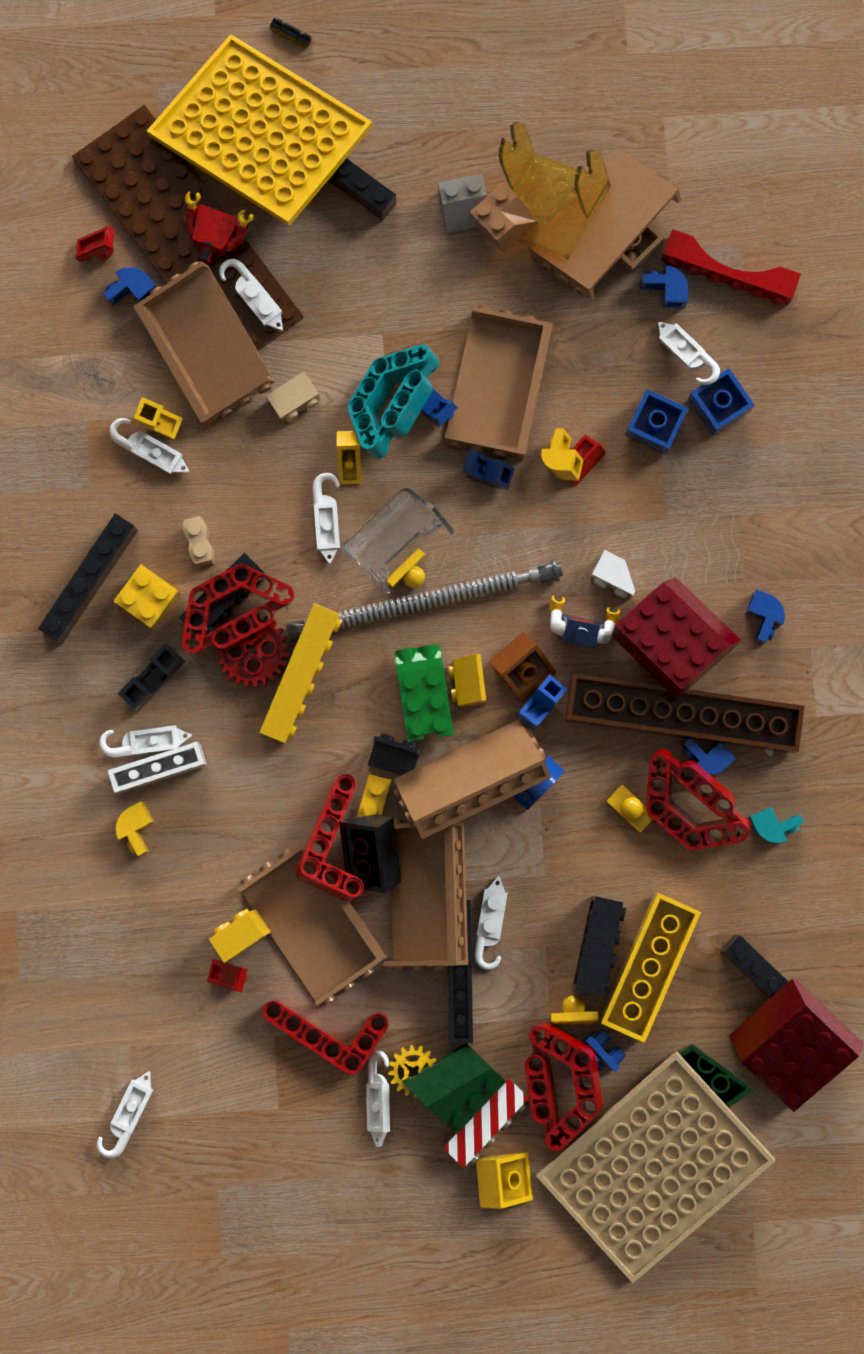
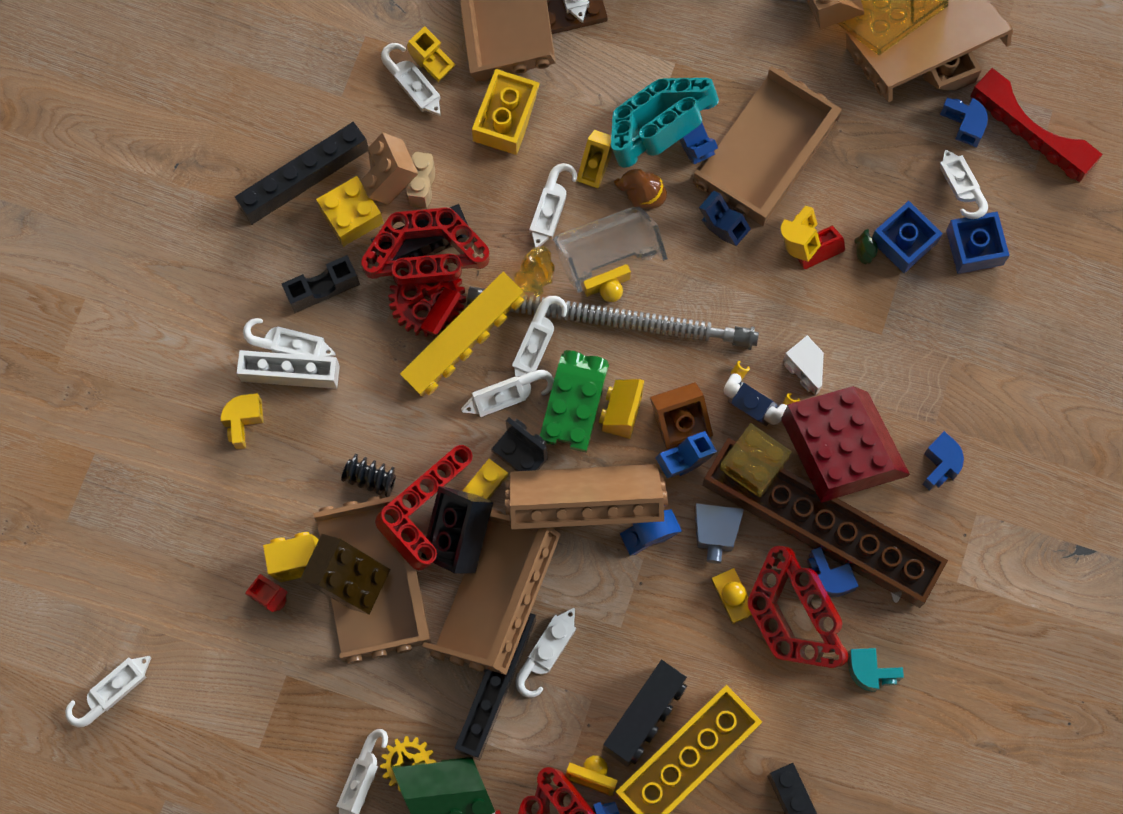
camera: 25 degrees right, 10 degrees down
(167, 546) = (389, 169): none -> medium nougat slope
(249, 446) = (505, 112): none -> yellow slope
(271, 661) = (440, 311): none -> red slope
(271, 832) = (369, 475): none -> black piece
(291, 934) = (345, 574): none -> dark brown brick
(293, 398) = (566, 85): tan brick -> none
(326, 1038) = (334, 697): red beam -> none
(339, 587) = (535, 271): none -> clear yellow hair
(359, 709) = (505, 393): none -> white plate
(366, 650) = (537, 337): none -> white plate
(403, 469) = (642, 188): none -> dark orange hair
(594, 757) = (716, 529): none -> sand blue torso
(606, 686) = (755, 460): none -> clear yellow brick
(623, 445) = (866, 247): none -> dark green animal

